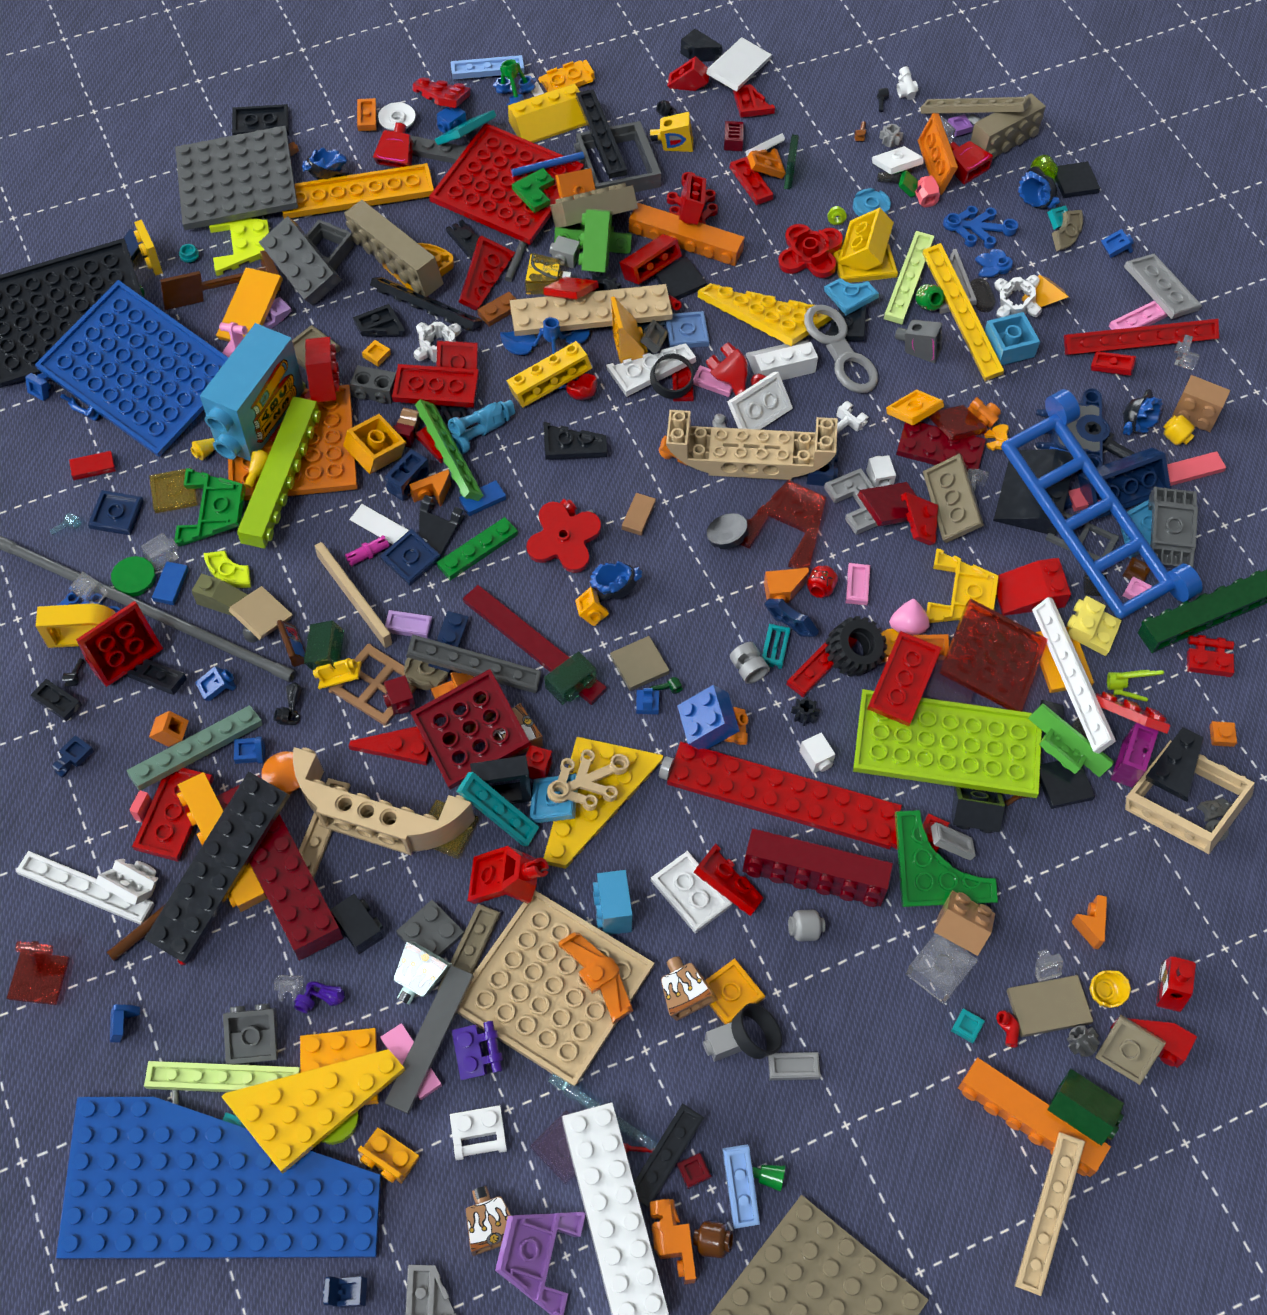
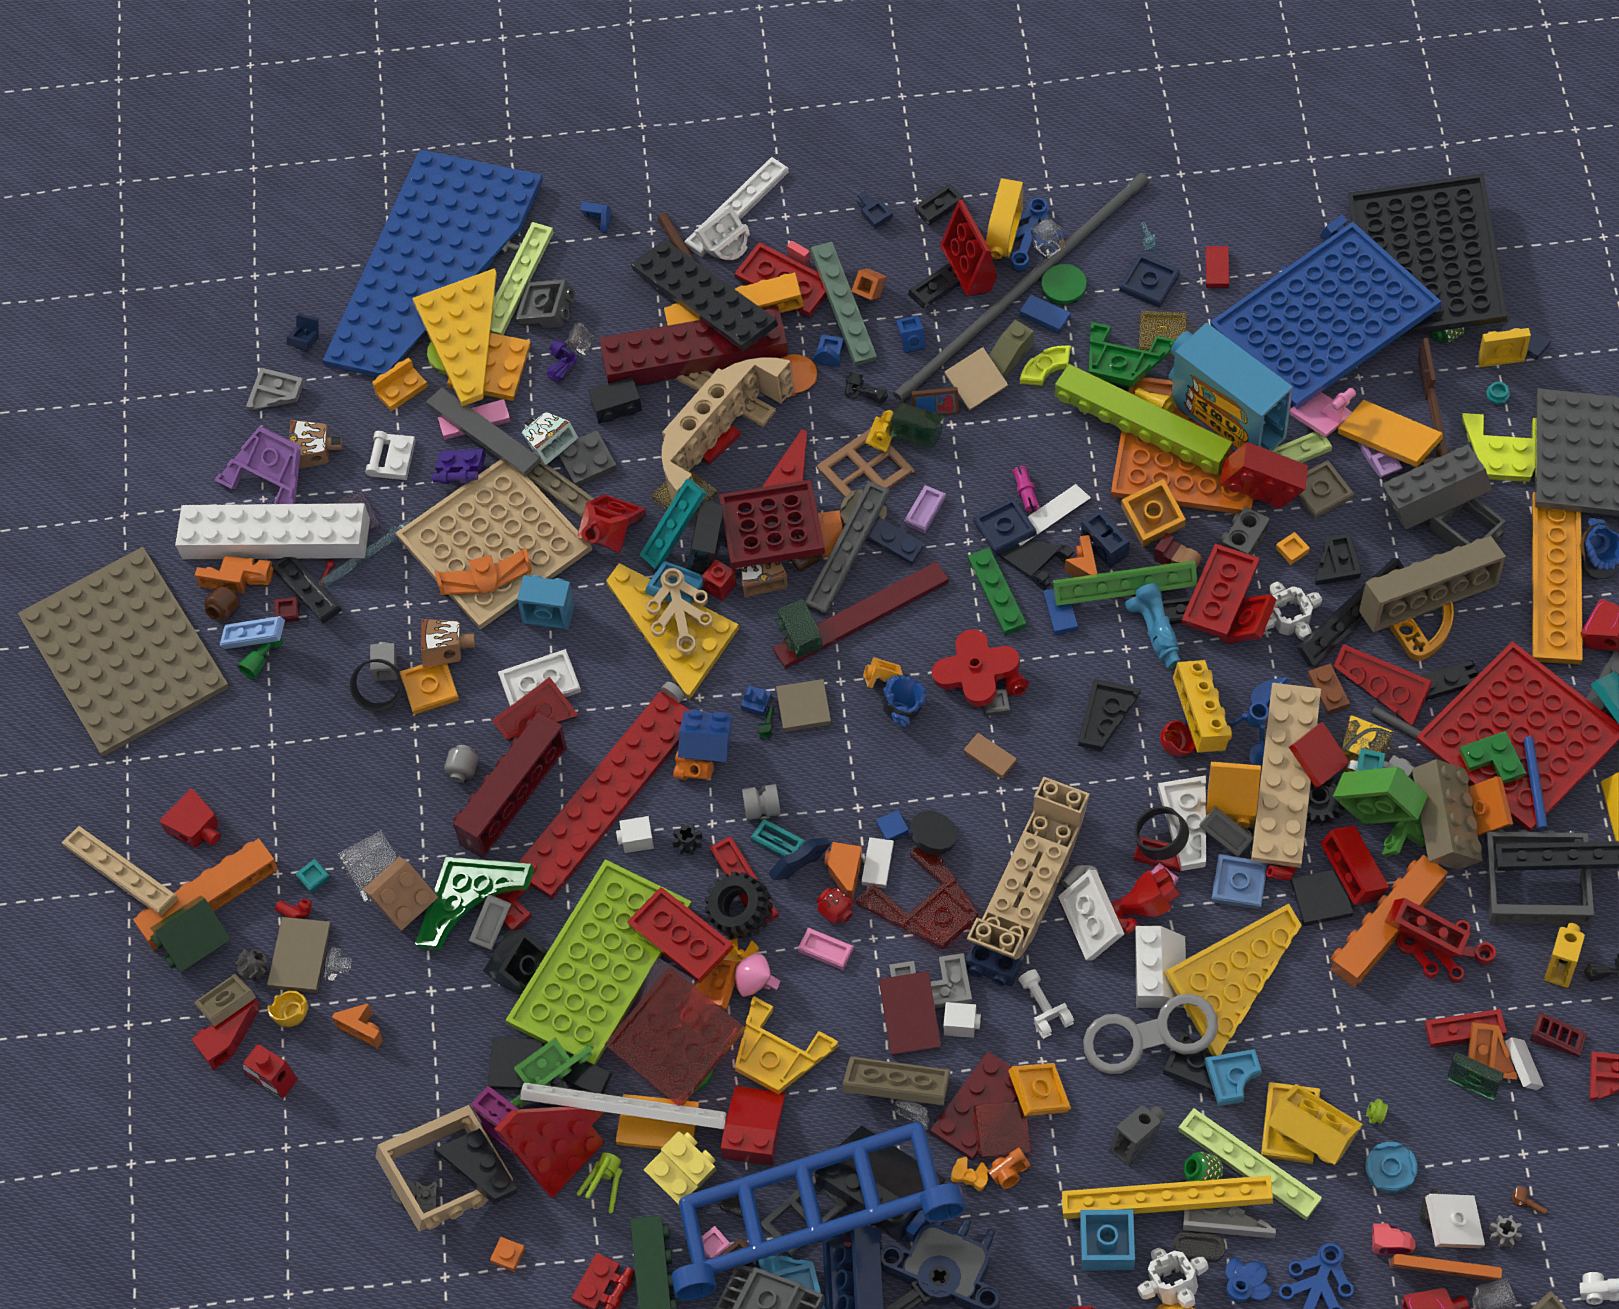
camera: 115 degrees right, 0 degrees up
(37, 974) = (664, 162): clear red plate -> none
(160, 550) = (1082, 307): clear brick -> none
(353, 595) = (973, 463): tan tile -> none
(398, 695) = (836, 477): dark red brick -> none
(567, 257) = (1369, 760): none -> teal tile
(729, 565) = (892, 826): none -> blue tile
(756, 567) = (877, 862): none -> white tile
(794, 1066) = (339, 717): light grey tile -> none
(810, 250) = (1325, 1059): red plant -> none
(883, 94) = (1592, 1251): black hand -> none
(908, 183) = (1411, 1221): green tile -> none
(922, 518) = (881, 1036): red wing -> none
(965, 1164) = (191, 821): none -> red torso

